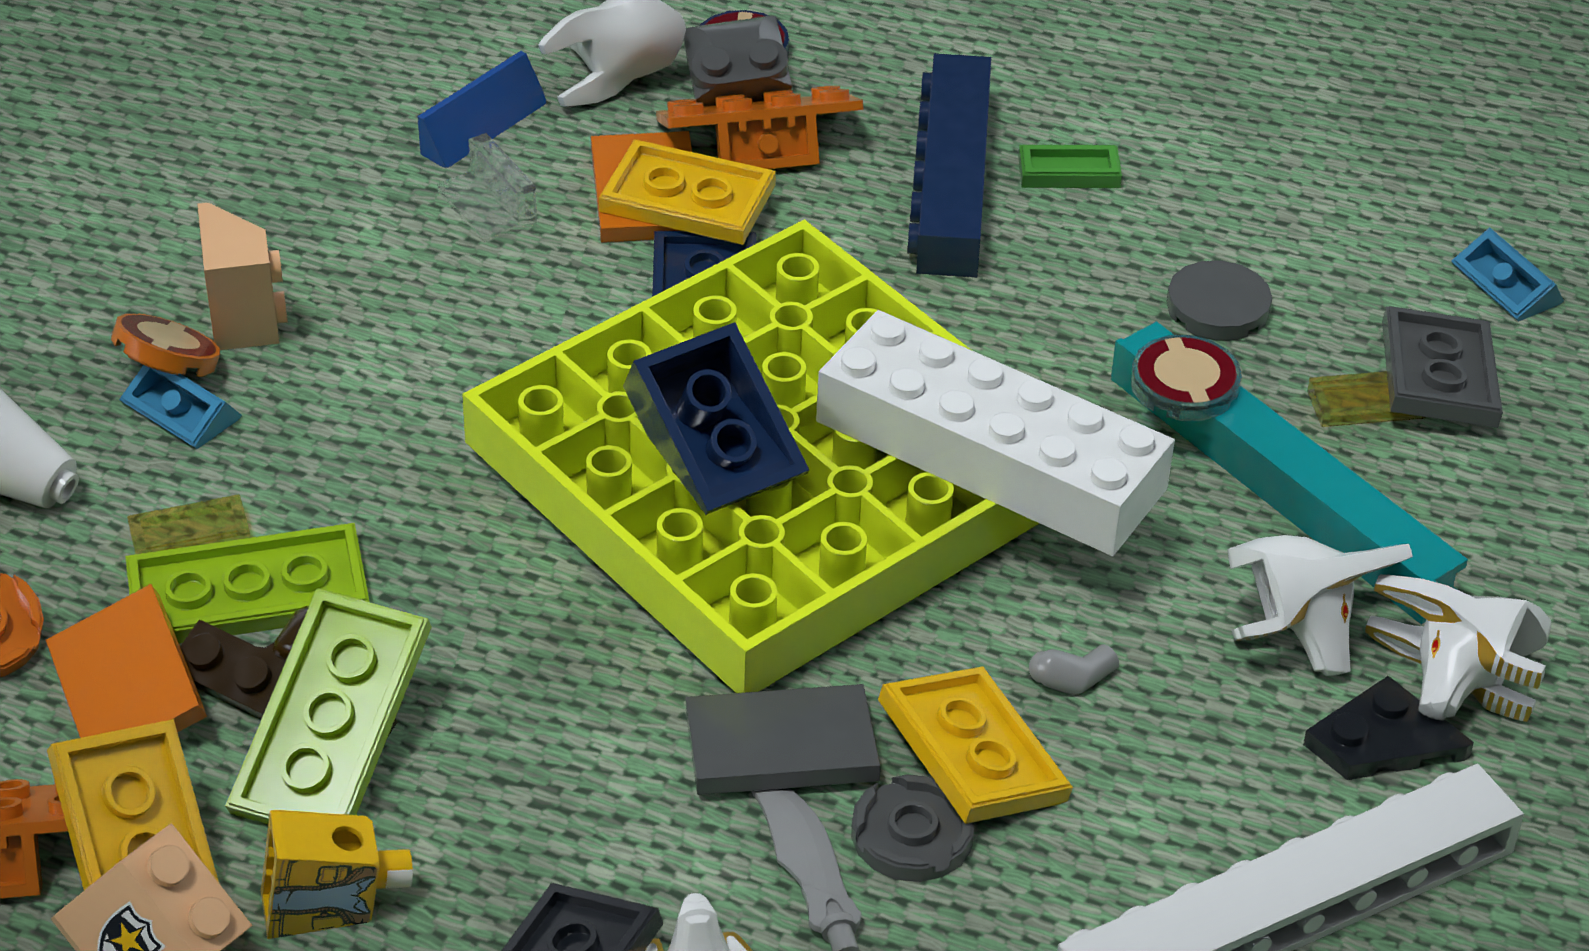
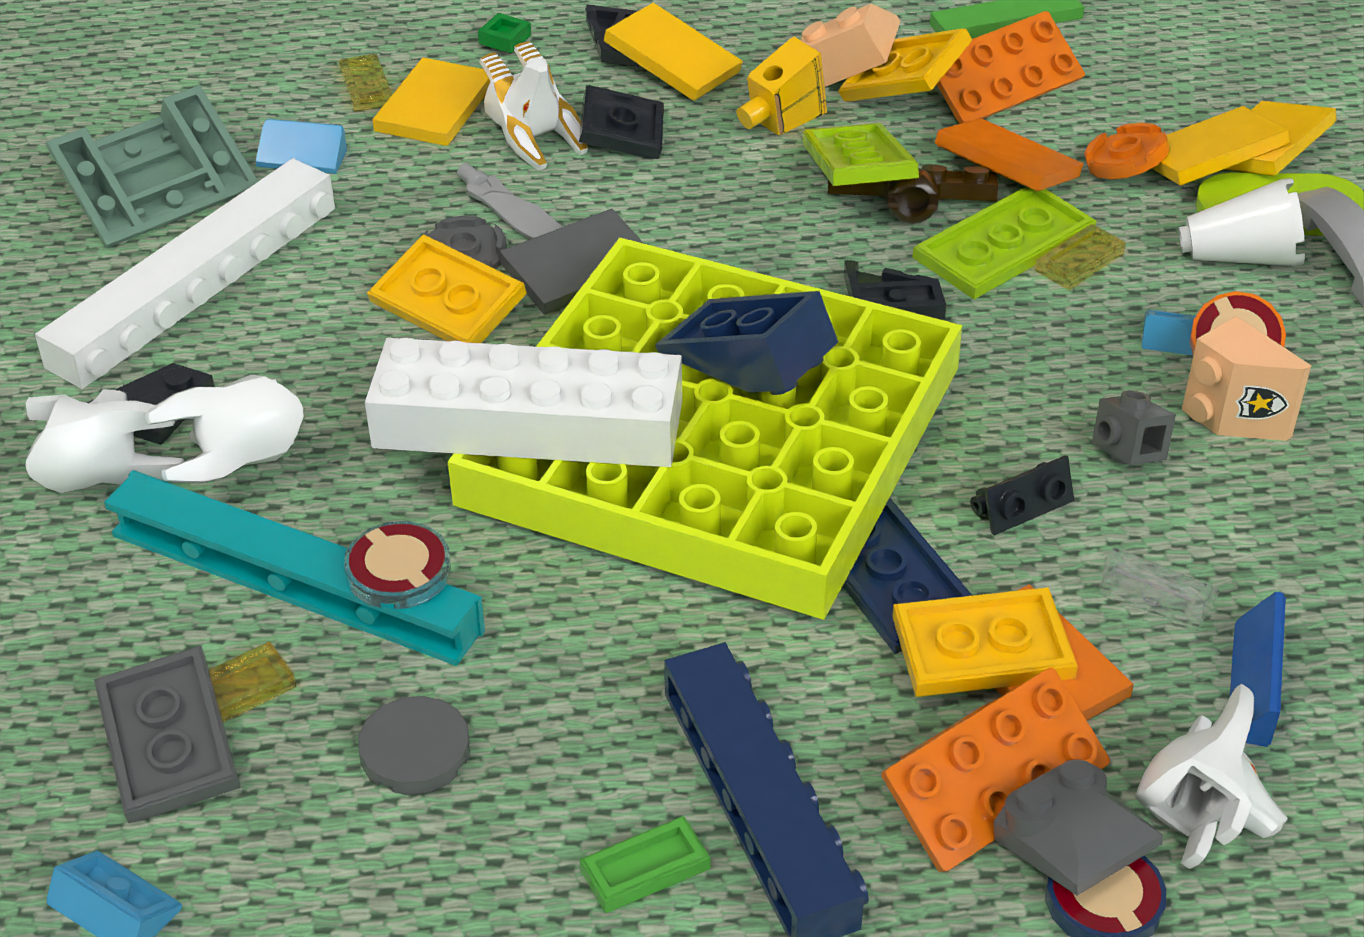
camera: 155 degrees right, 0 degrees up
(377, 294) = (1133, 428): none -> dark grey brick
(456, 548) = (896, 290): none -> black wing
(503, 296) = (1025, 495): none -> black hinge

